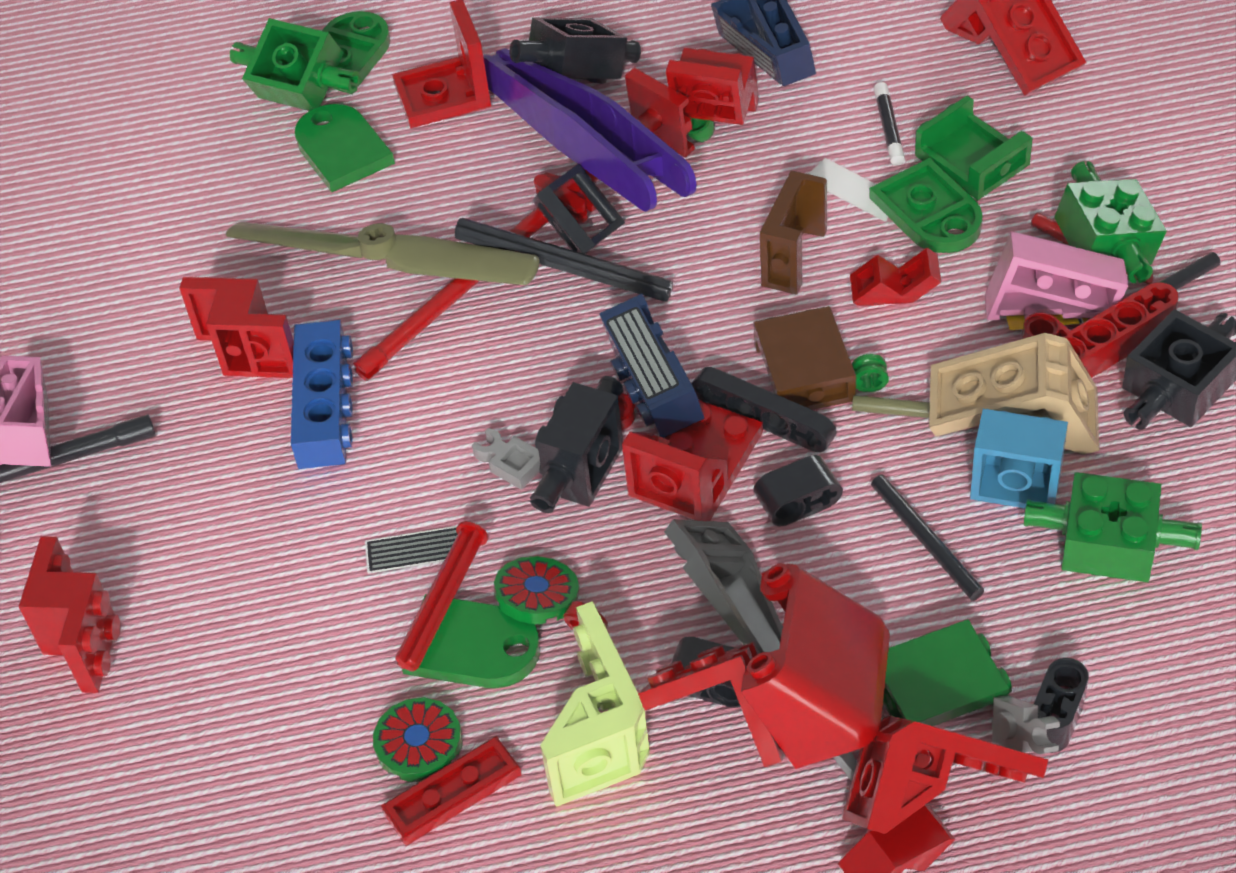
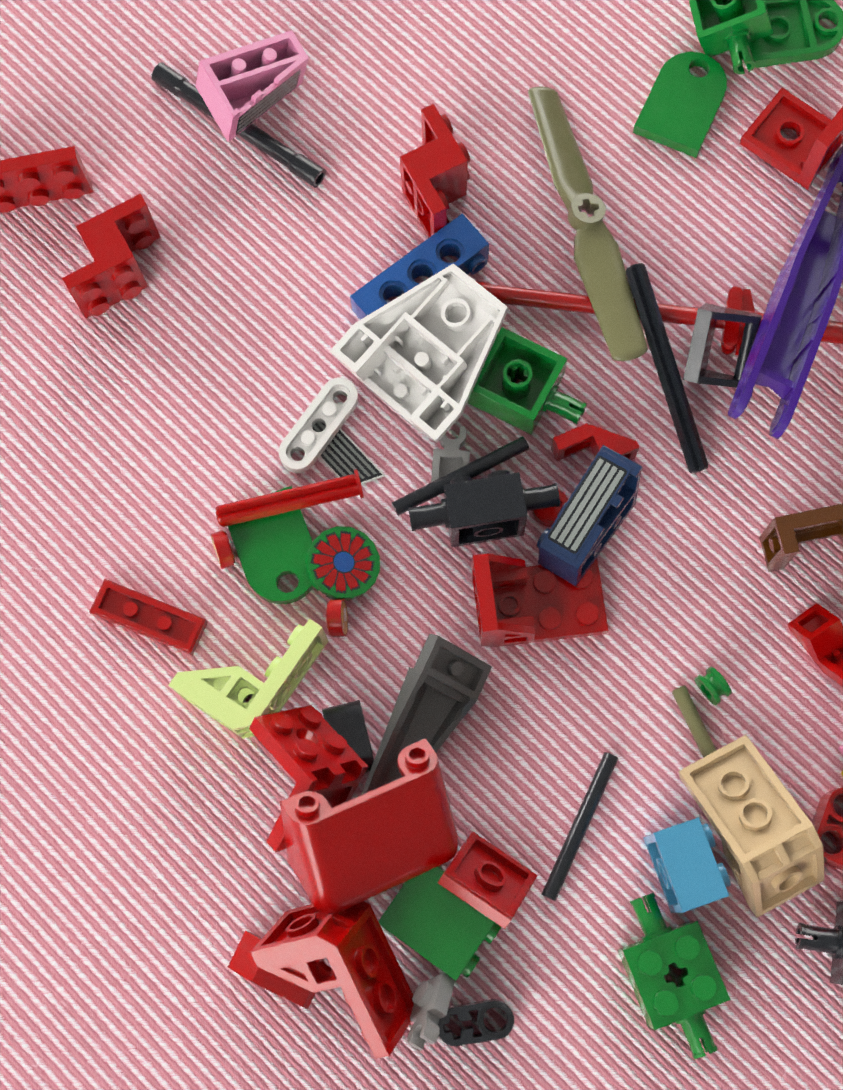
camera: 55 degrees right, 25 degrees up
(382, 531) = (323, 410): none -> white plate
(398, 410) = (426, 348): none -> white wedge
(417, 738) = (173, 565): tile -> none
(439, 682) = (222, 549): none -> red tile
(481, 367) = (523, 403): none -> green brick
(531, 454) = (472, 469): none -> black bar
(582, 343) = (594, 438): none -> red slope
(797, 423) = (620, 624): black beam -> none
(797, 490) = (557, 700): black beam -> none
(806, 358) = (691, 624): reddish brown panel -> none
(932, 615) = (488, 879): none -> red plate

